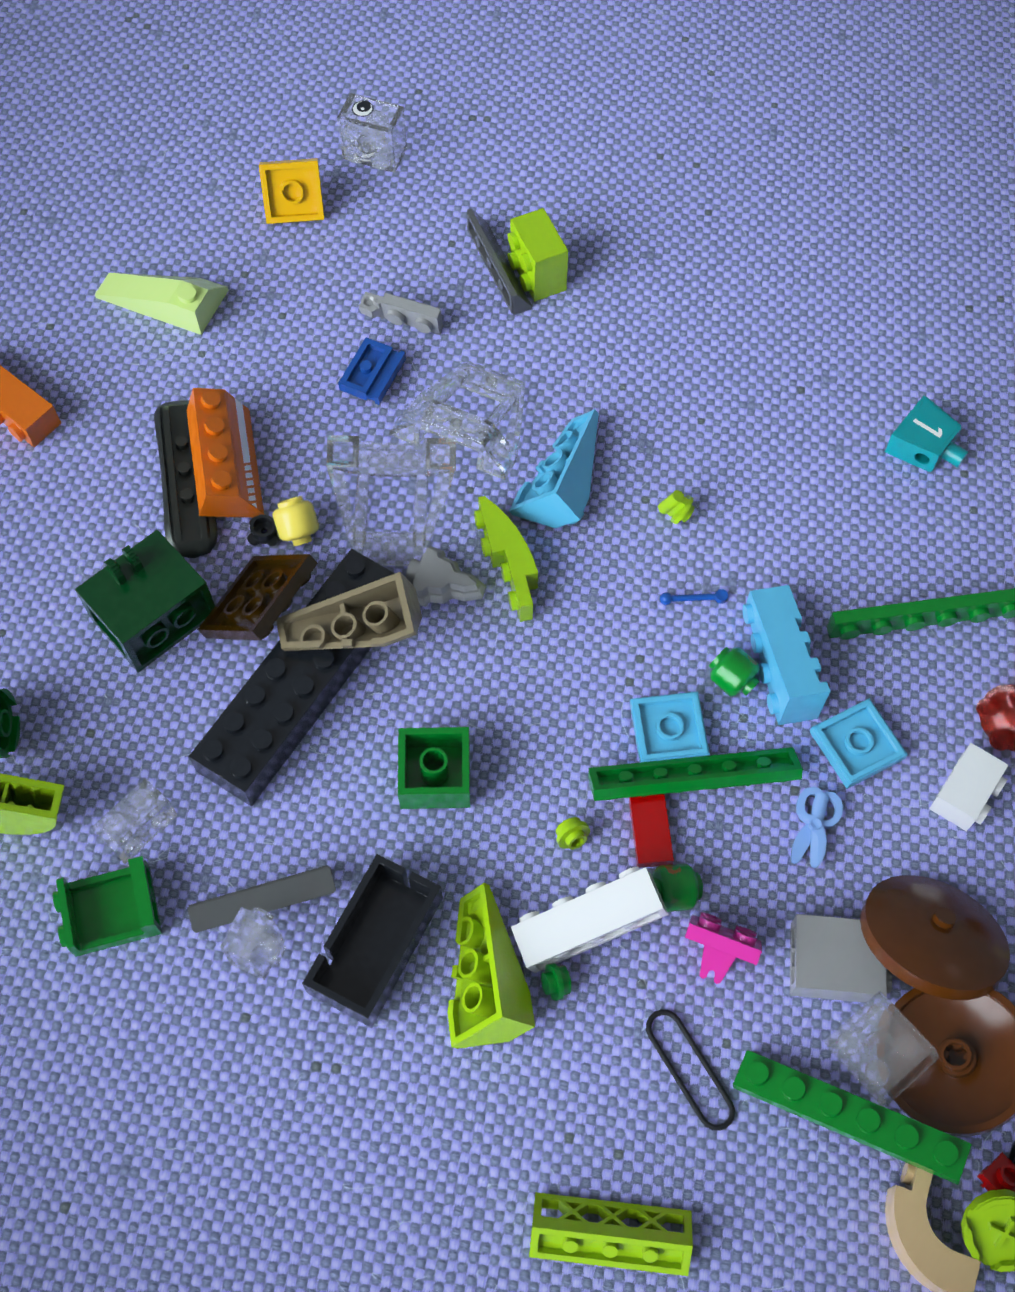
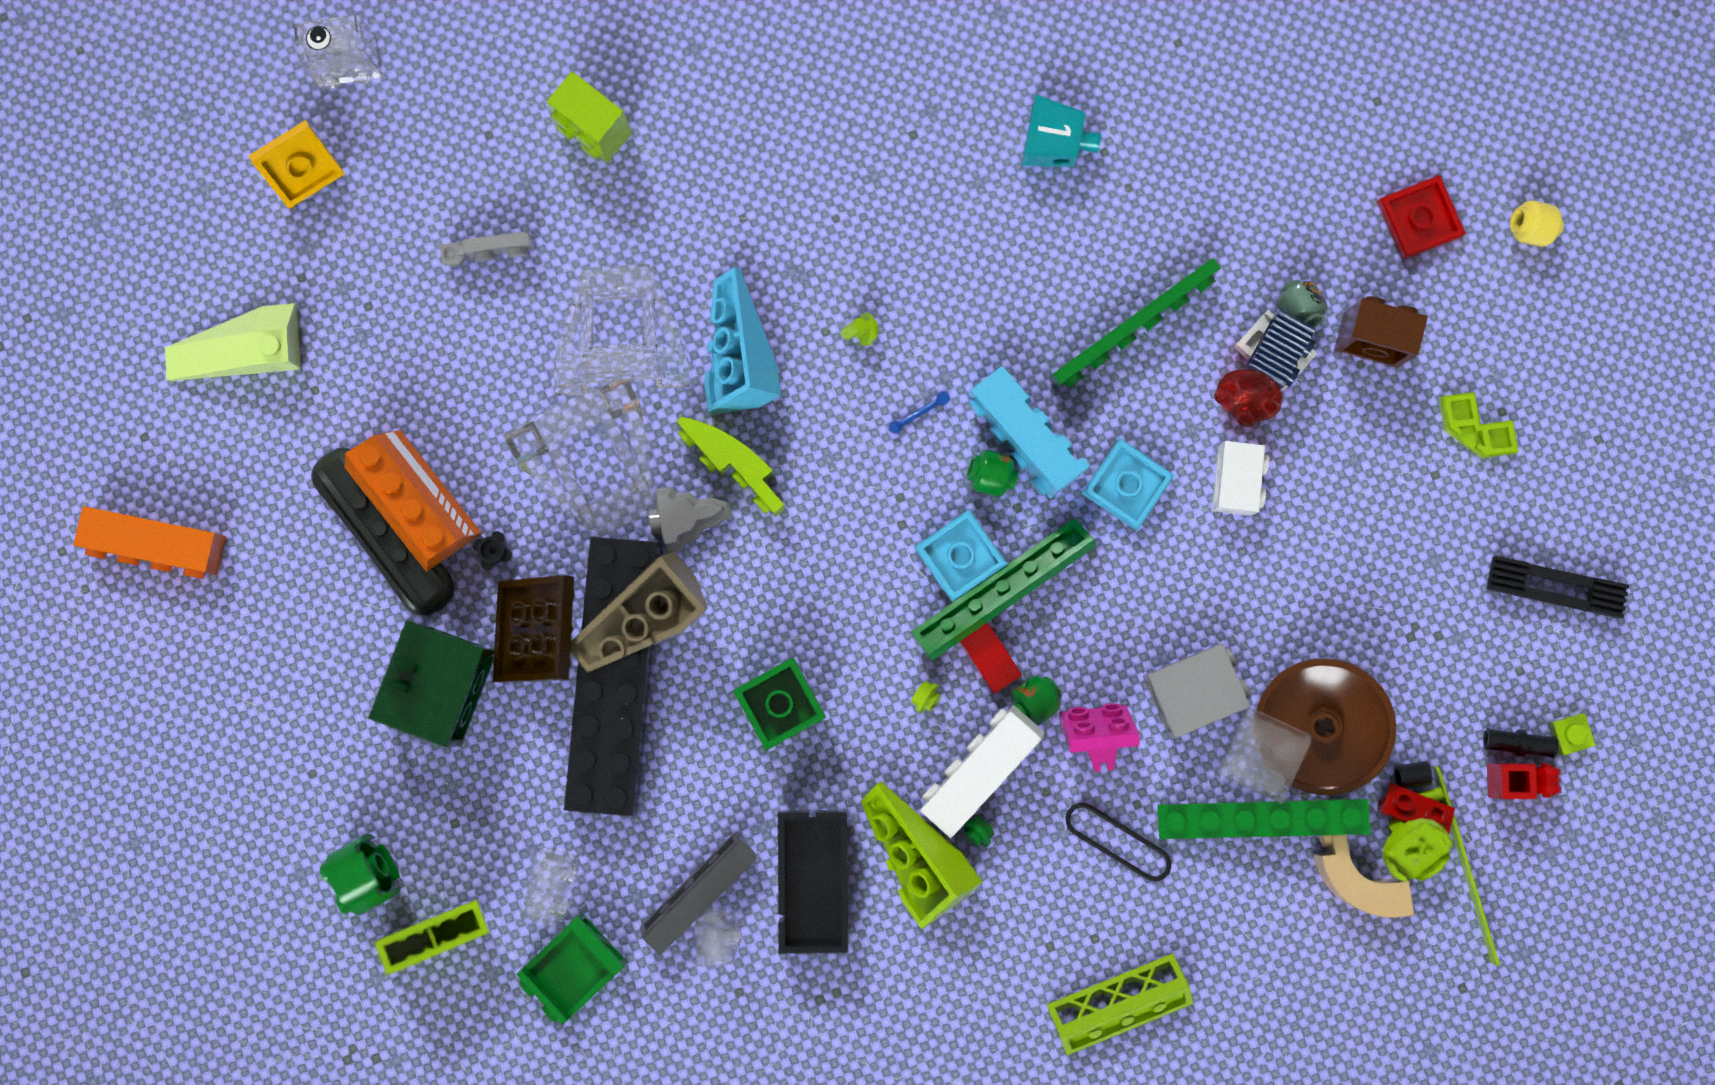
camera: 30 degrees left, 20 degrees up
(295, 520) = (518, 529): light yellow head -> none
(372, 371) = (495, 328): blue plate -> none
(497, 264) = (549, 138): dark grey slope -> none
(814, 831) = (1125, 587): light blue piece -> none
(935, 937) = (1268, 637): reddish brown dish -> none

